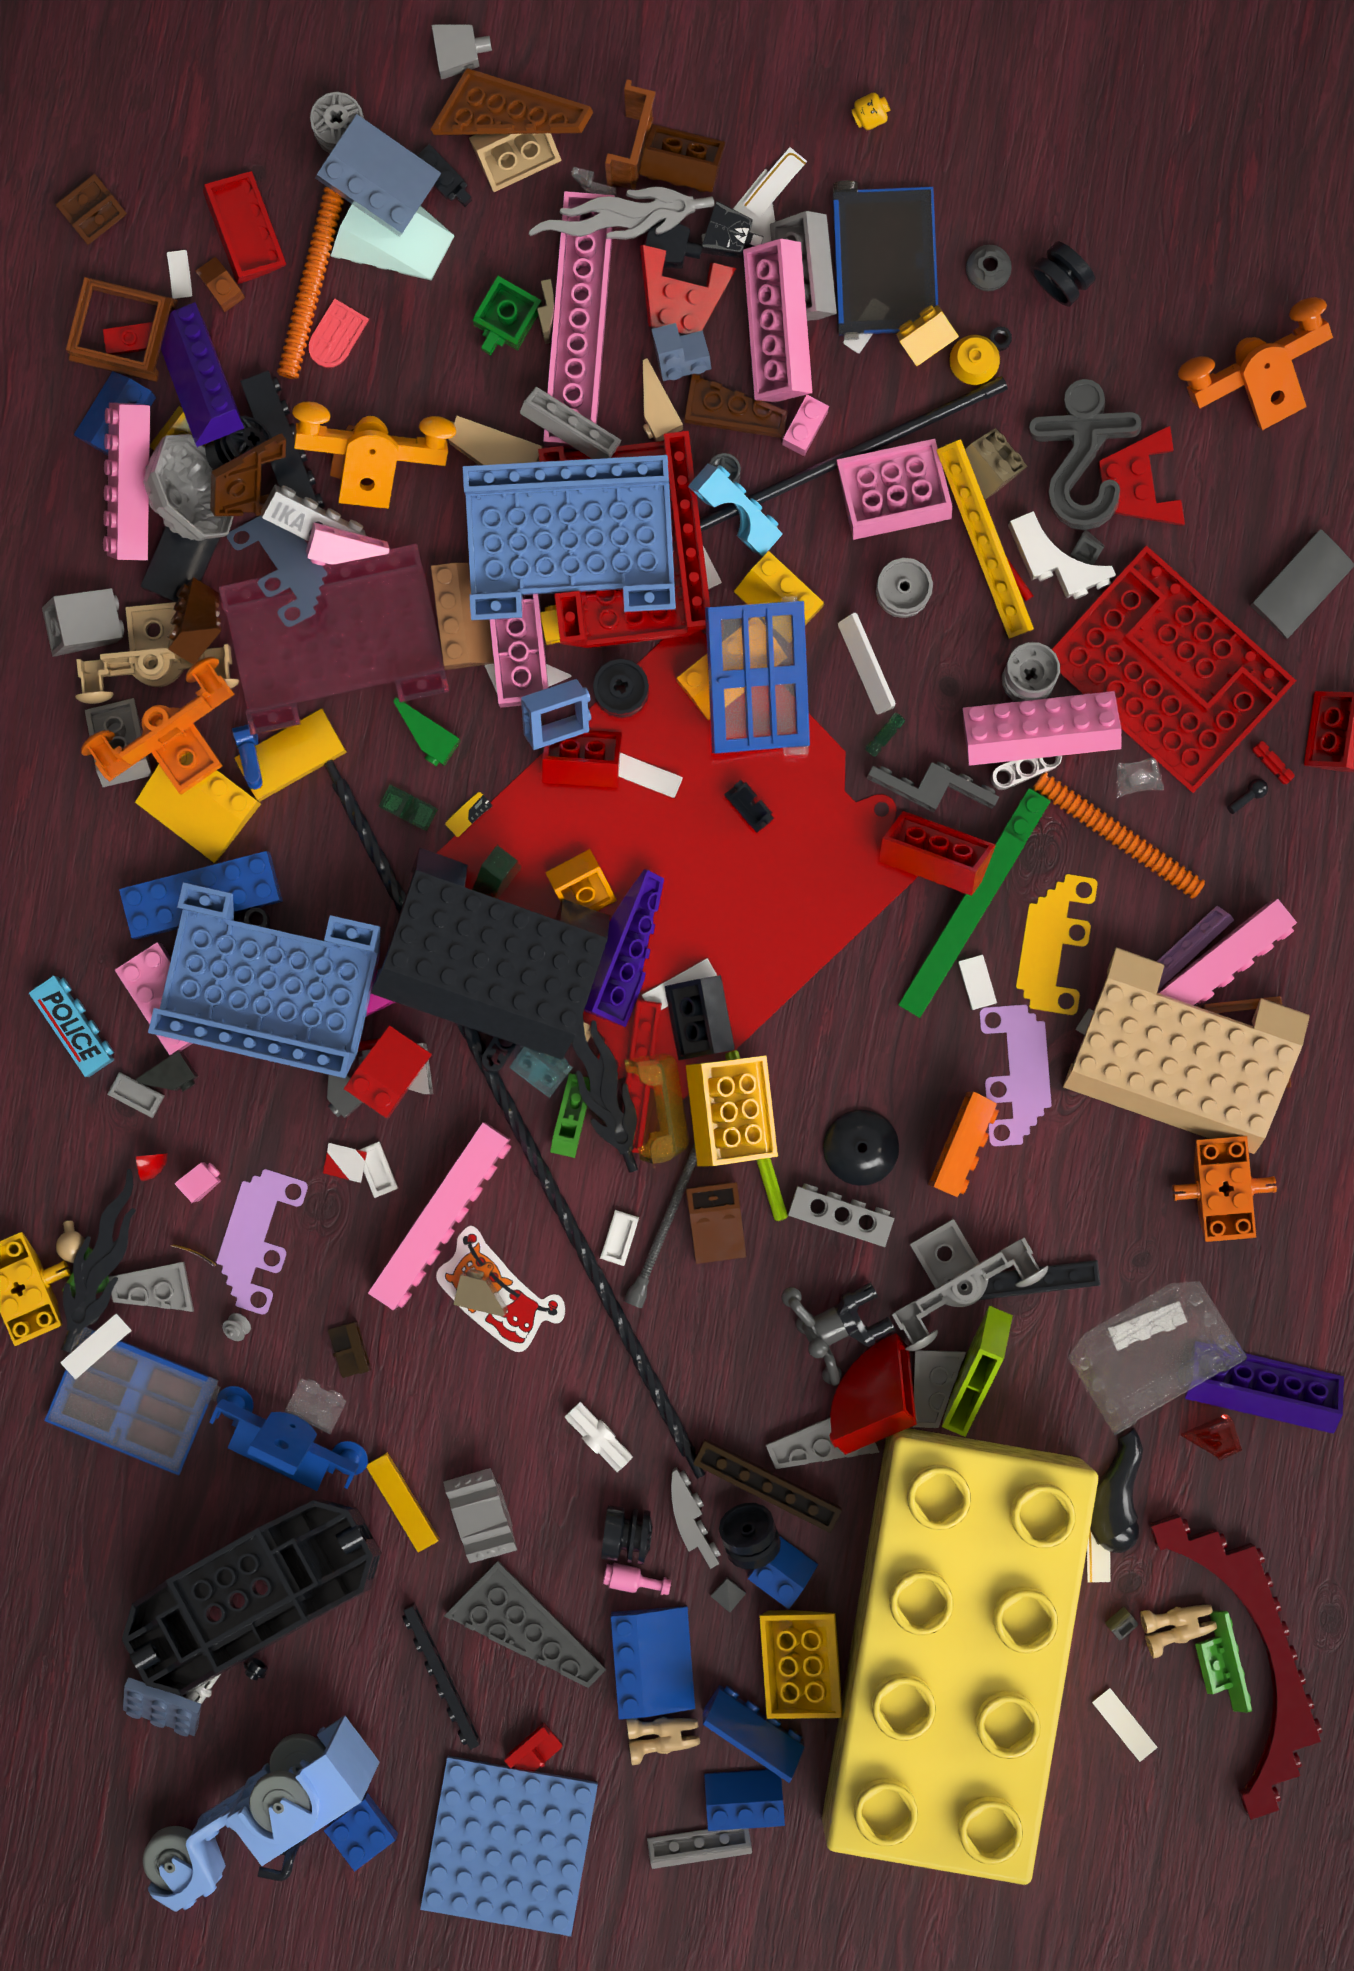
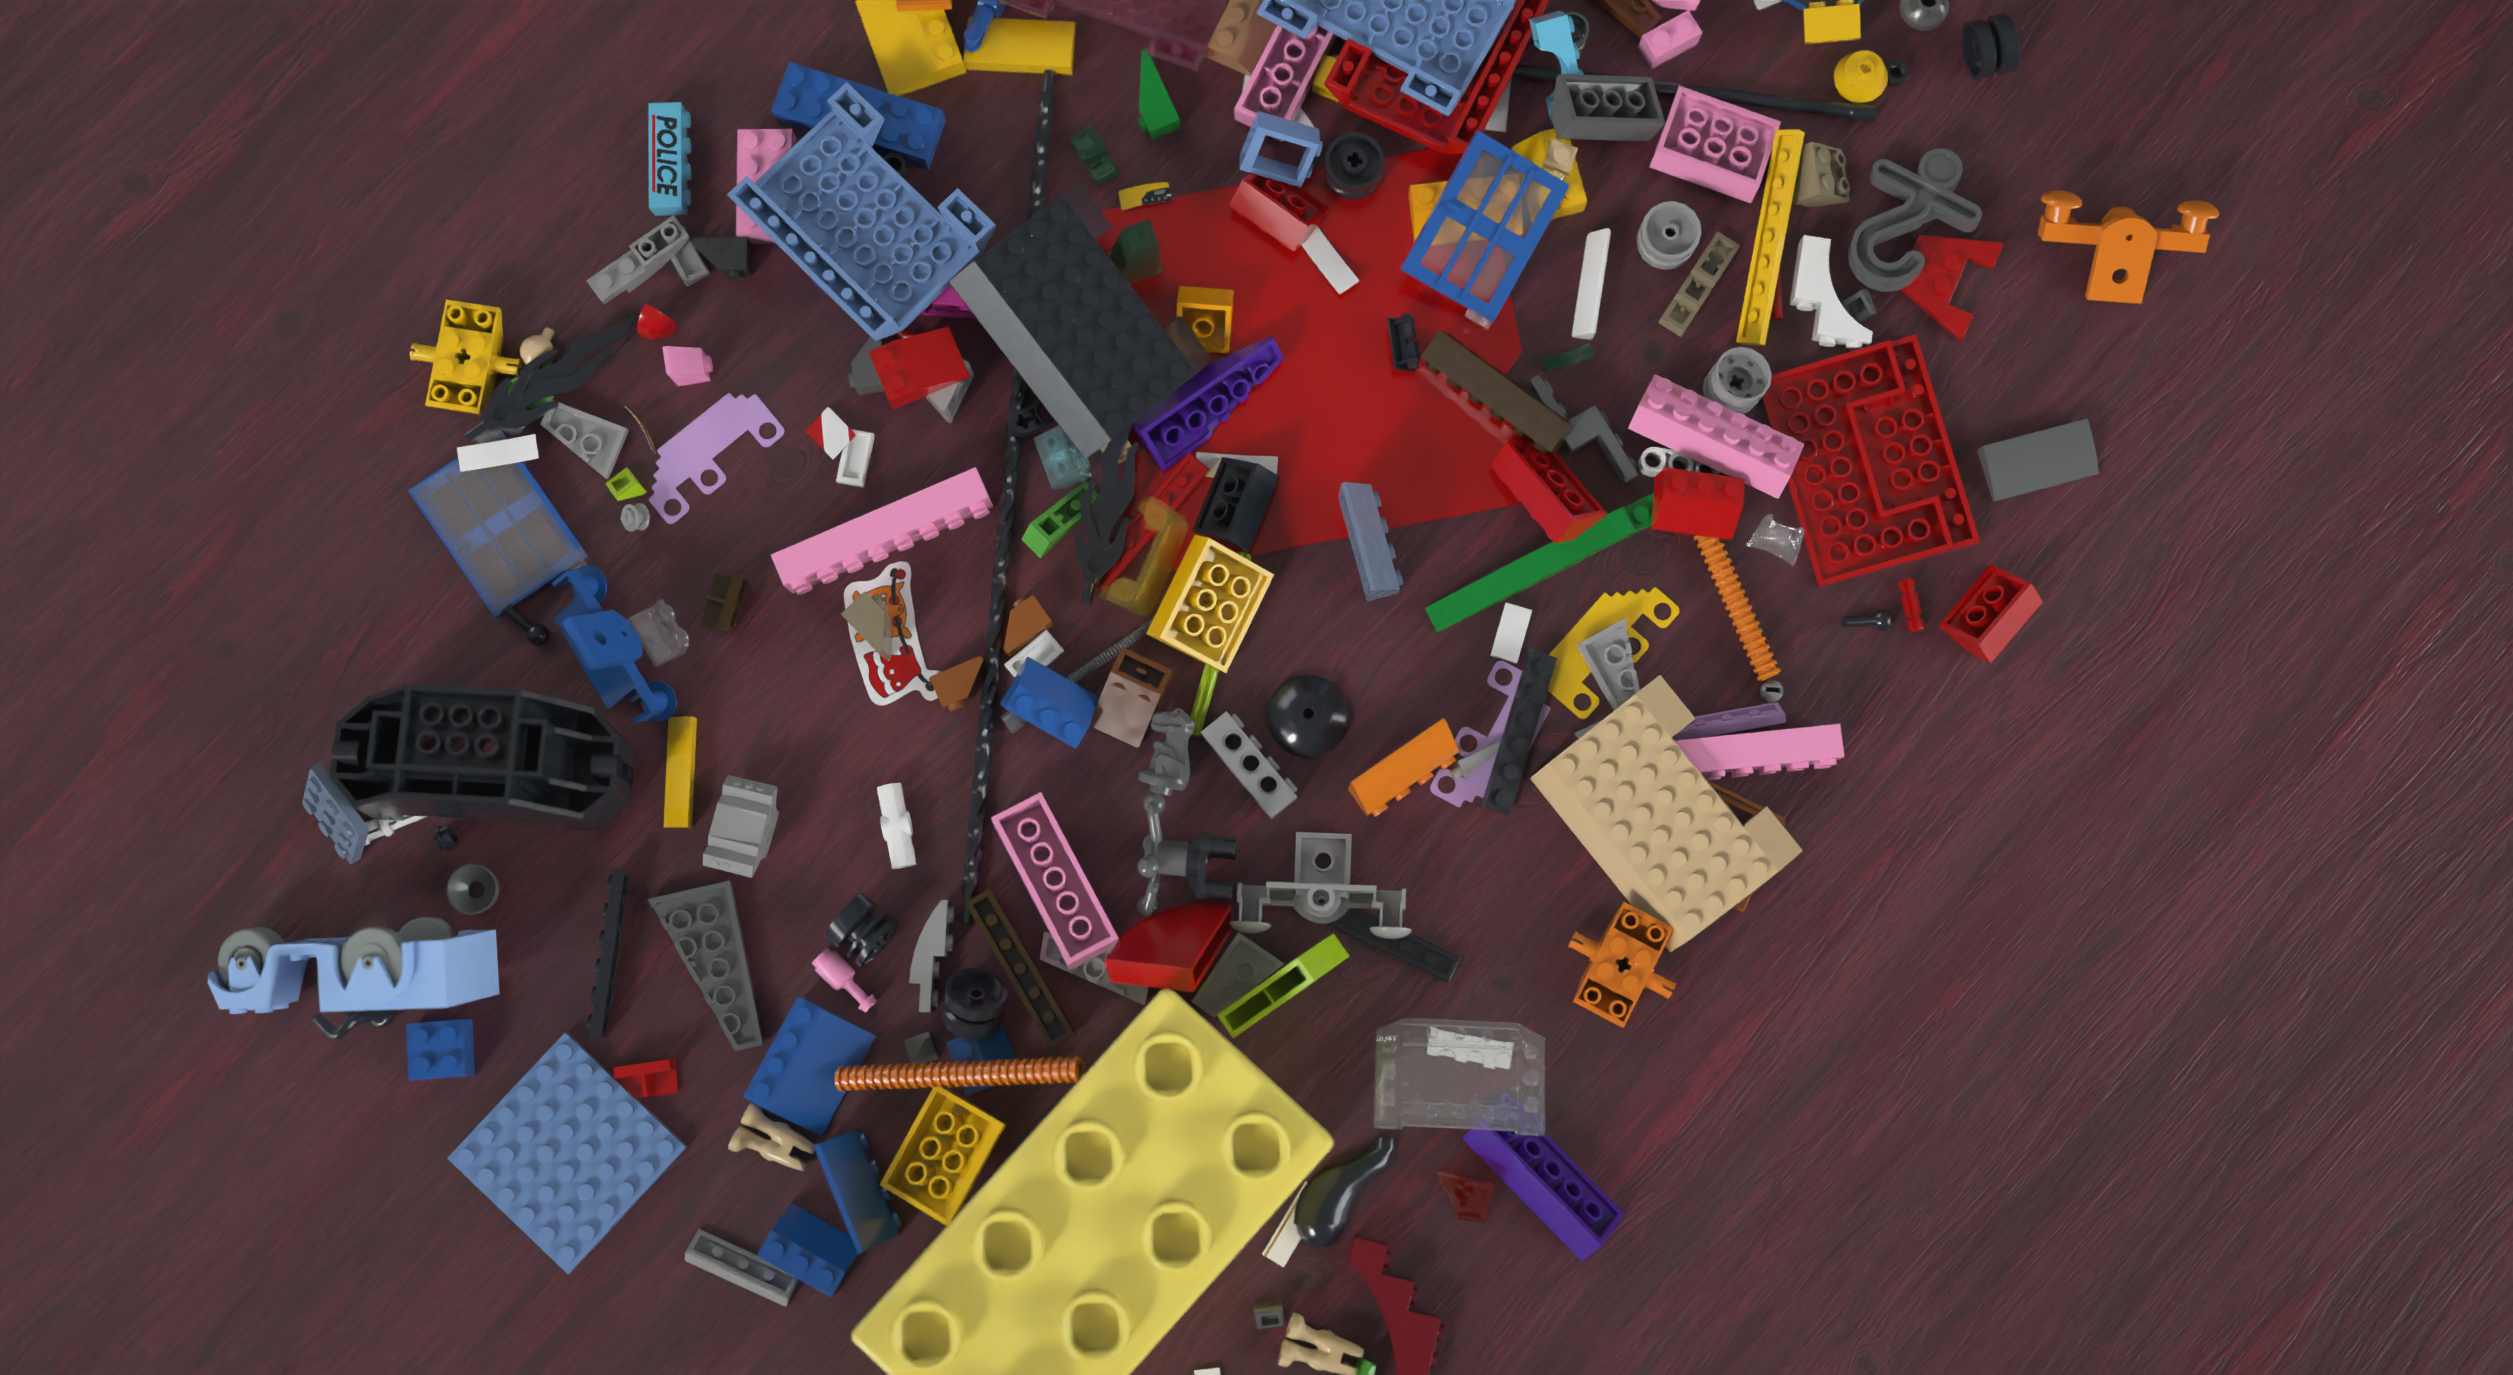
camera: 30 degrees right, 5 degrees down
(105, 1123) = (641, 262): none -> light grey slope
(210, 1306) = (625, 485): none -> lime slope
(218, 1466) = (536, 633): none -> black bar
(294, 1704) = (459, 889): none -> dark grey piece
(573, 1297) = (956, 683): none -> dark orange slope
(596, 1216) = (1025, 624): none -> dark orange slope
(657, 1267) = (1050, 702): none -> blue slope
(750, 1402) = (1055, 881): none -> bright pink brick
(774, 1597) = (959, 1073): none -> orange piece
(779, 1253) = (1170, 762): none -> dark grey animal
(781, 582) = (1560, 157): none -> tan plate
(791, 517) = (1606, 108): none -> dark grey slope
(825, 984) = (1368, 540): none -> sand blue slope
(849, 800) = (1497, 391): none -> dark brown brick
(951, 610) = (1699, 284): none -> dark tan slope
(1011, 1104) = (1469, 764): none -> light grey piece
(1032, 1057) = (1519, 732): none -> black plate
(1060, 792) = (1697, 503): none -> red slope
(1071, 958) = (1611, 663): none -> light grey wing
(1210, 904) = (1771, 696): none -> light grey hinge

